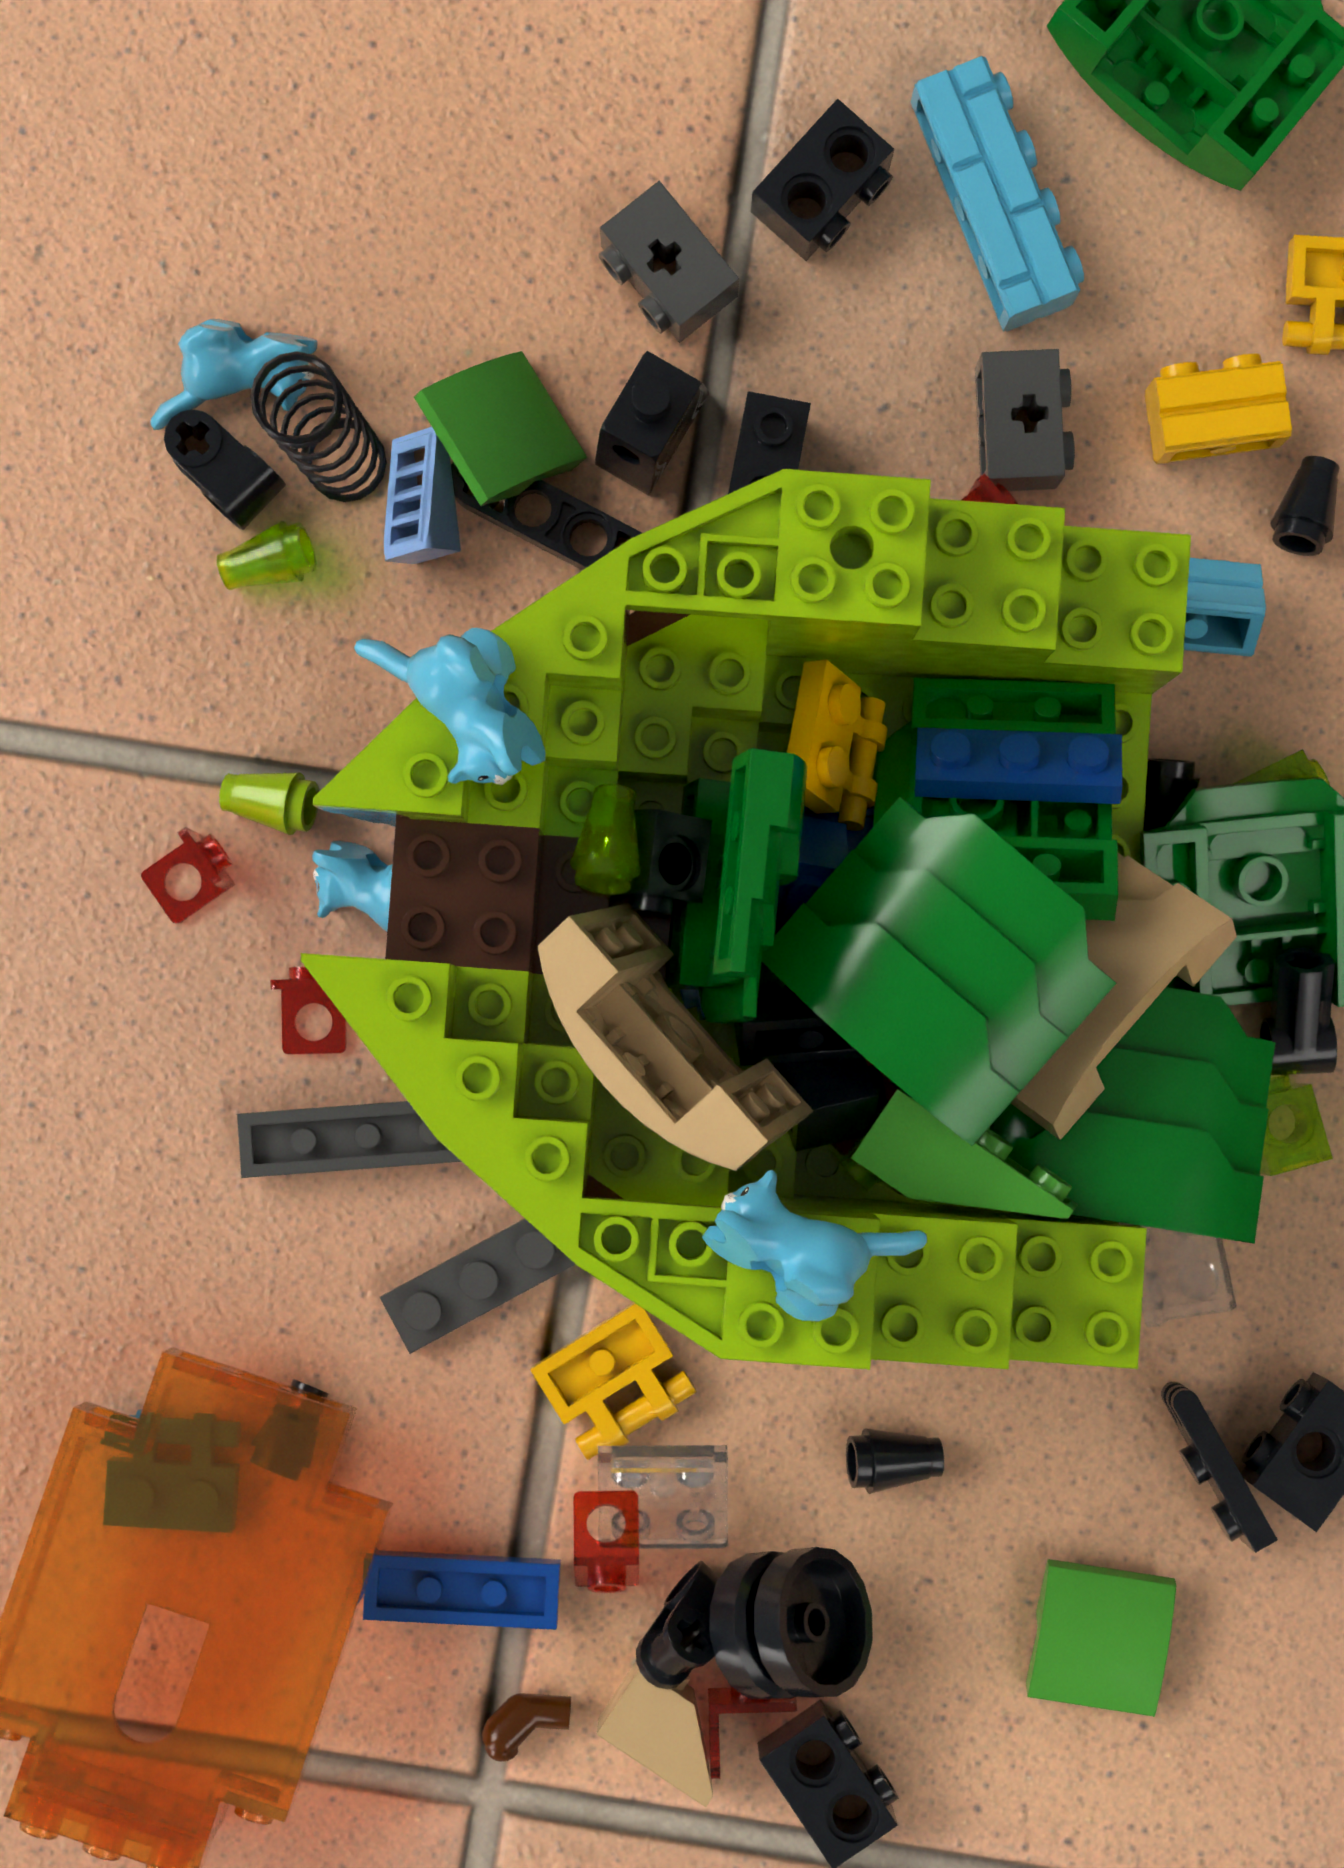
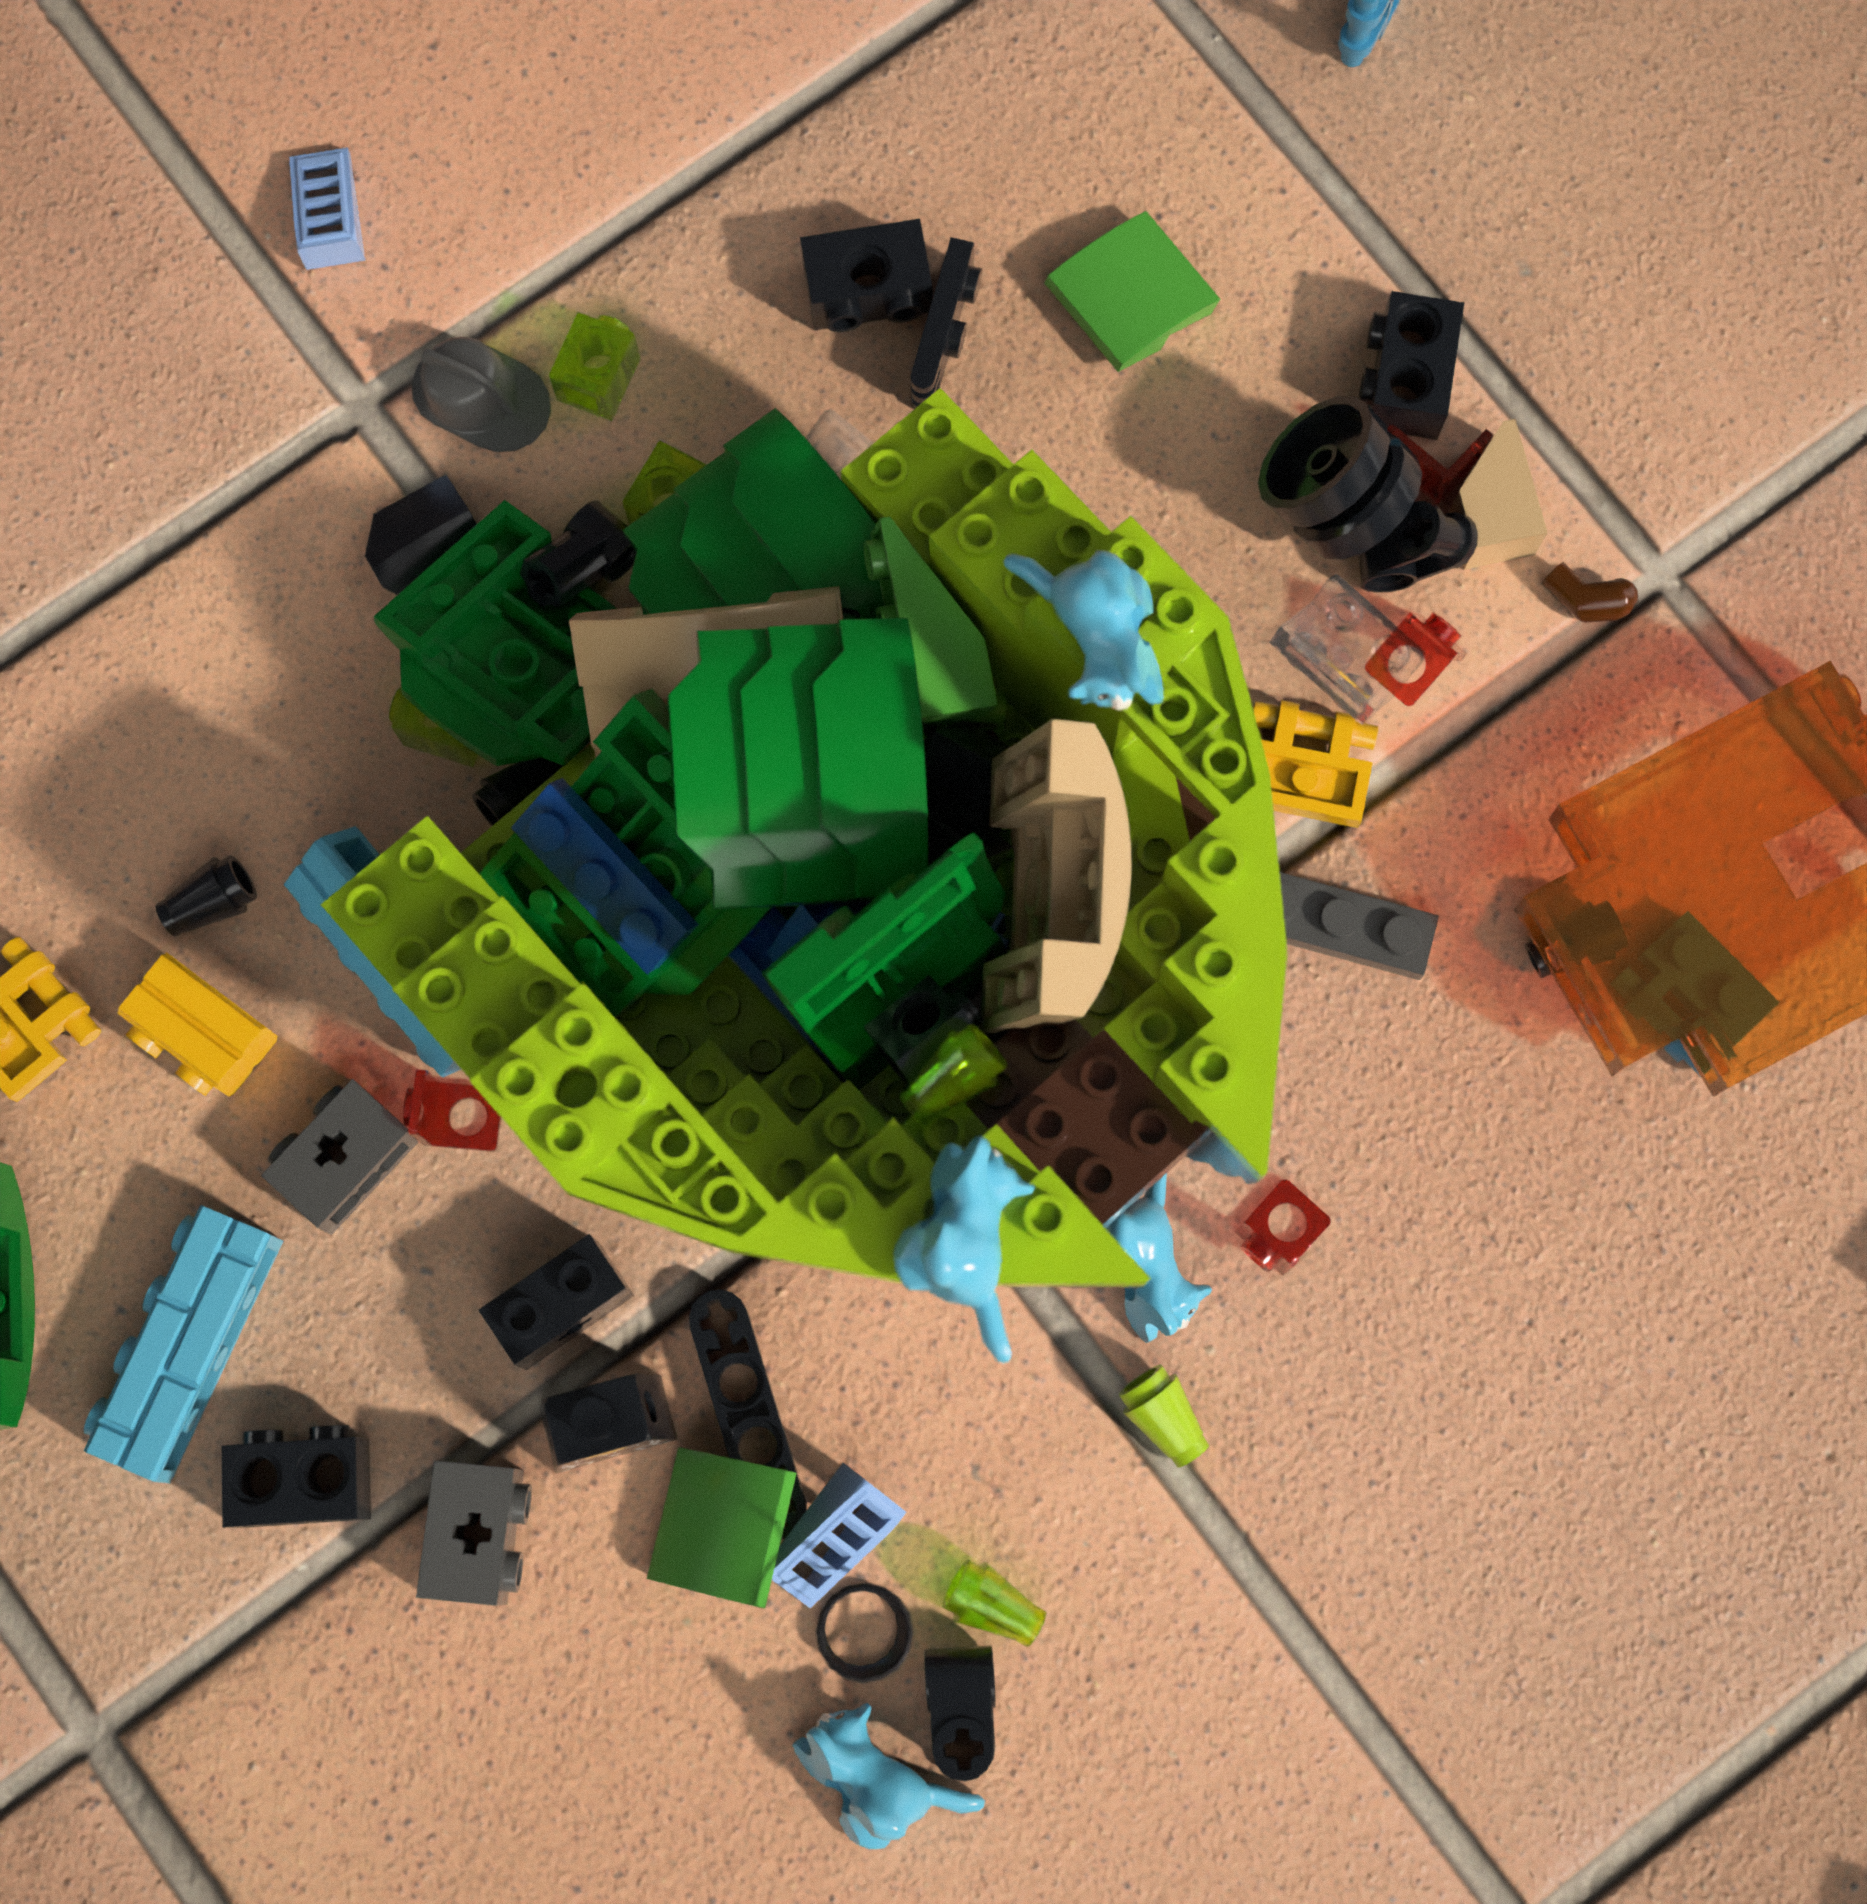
camera: 135 degrees left, 10 degrees down
(210, 861) = (1254, 1416): clear red bracket -> none
(336, 1139) = (1352, 1118): dark grey plate -> none
(463, 1590) = (1548, 715): blue plate -> none
(824, 728) = (716, 1015): yellow plate -> none
(891, 1459) = (1170, 528): black cone -> none

